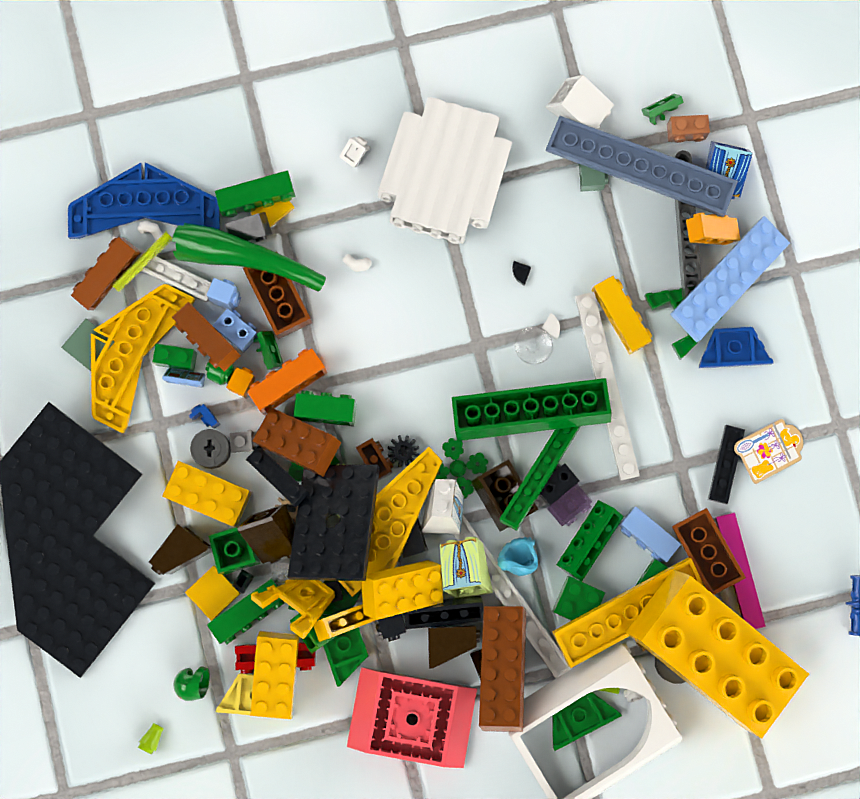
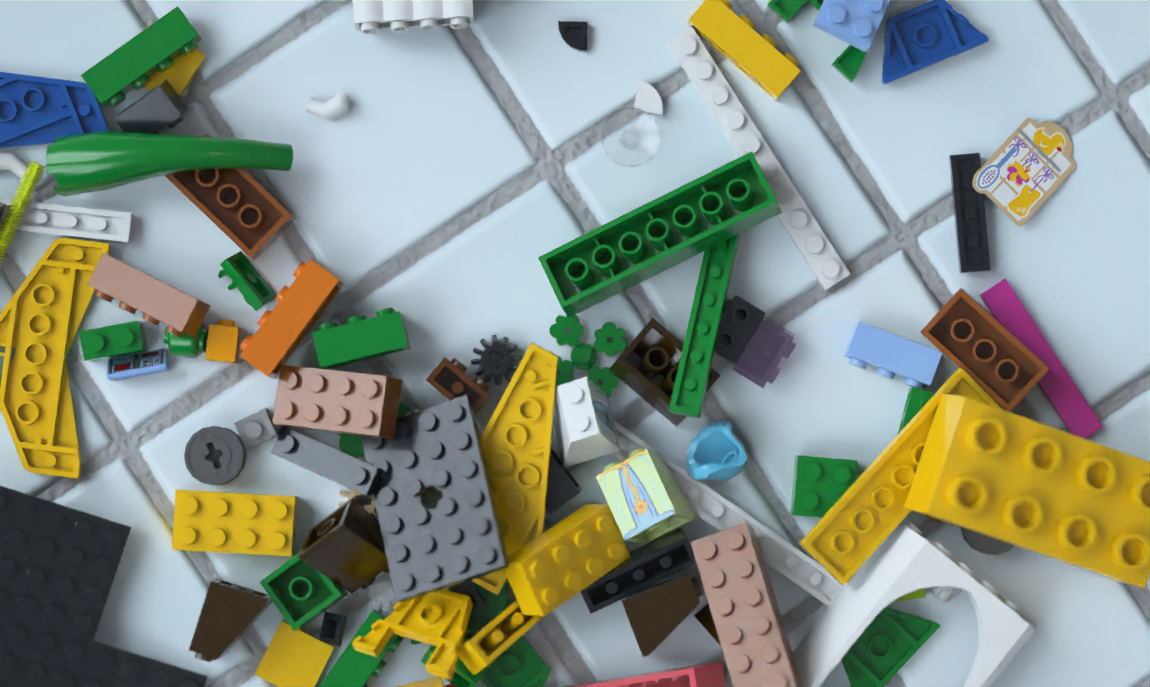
camera: 20 degrees left, 5 degrees up
(208, 417) = (194, 411): blue bracket -> none
(224, 294) = (152, 223): light blue brick -> none
(235, 329) = (187, 269): light blue brick -> none
(391, 627) = (569, 618): black brick -> none
(590, 540) = (810, 393): green brick -> none

